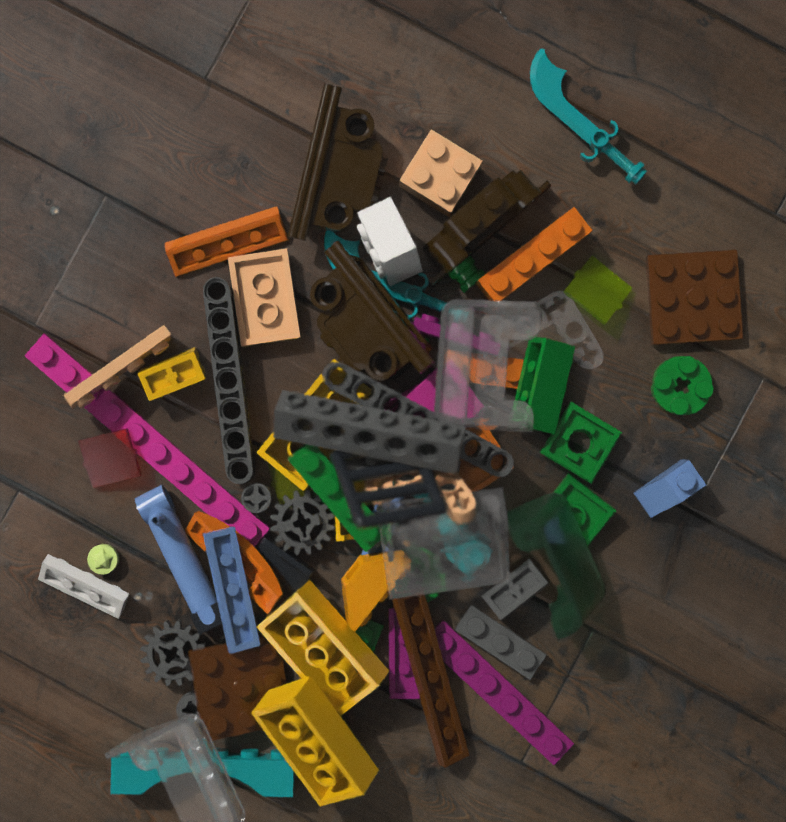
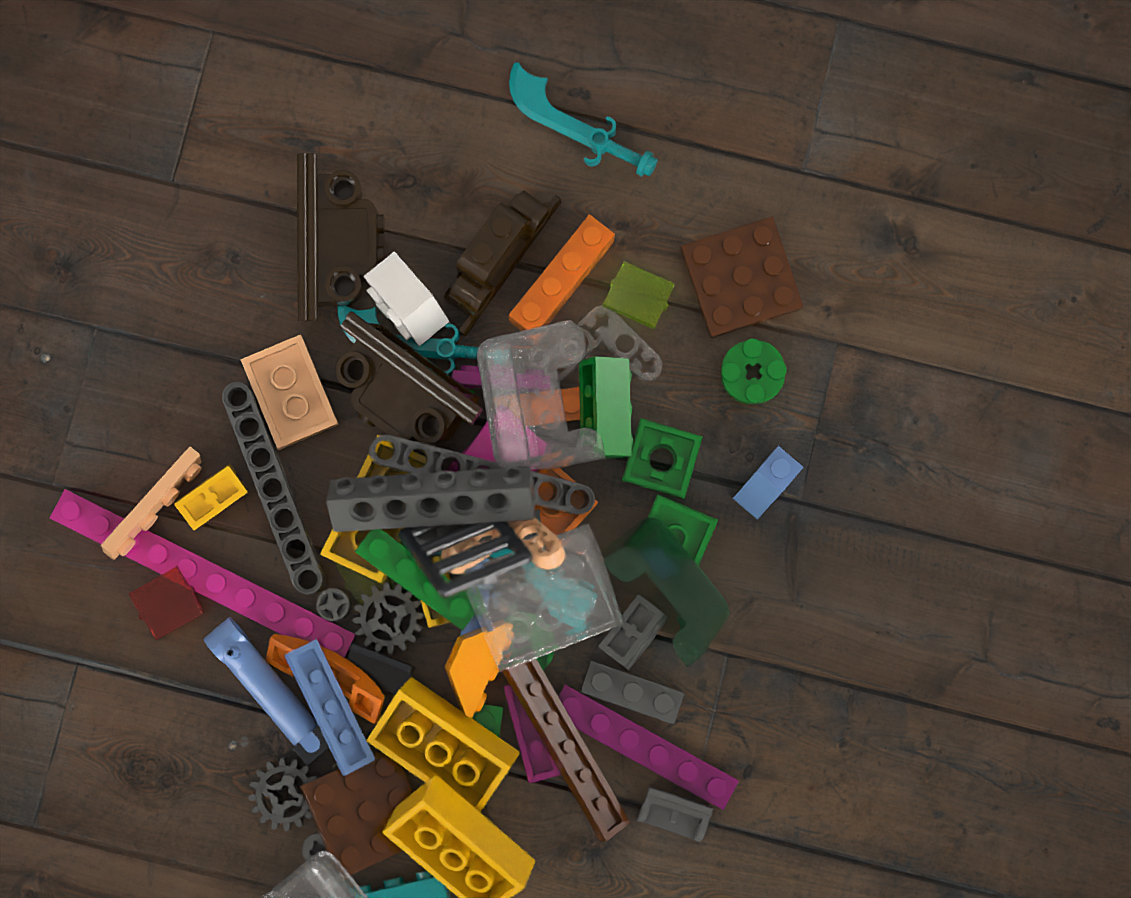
camera: 10 degrees left, 5 degrees down
(83, 586) = (170, 747): white plate -> none
(103, 559) = (185, 713): yellowish green tile -> none
(225, 241) = (234, 343): orange slope -> none
(440, 173) = (441, 215): light nougat brick -> none
(467, 274) = (496, 313): green wheel -> none
(511, 757) = (675, 813): none -> dark grey hinge

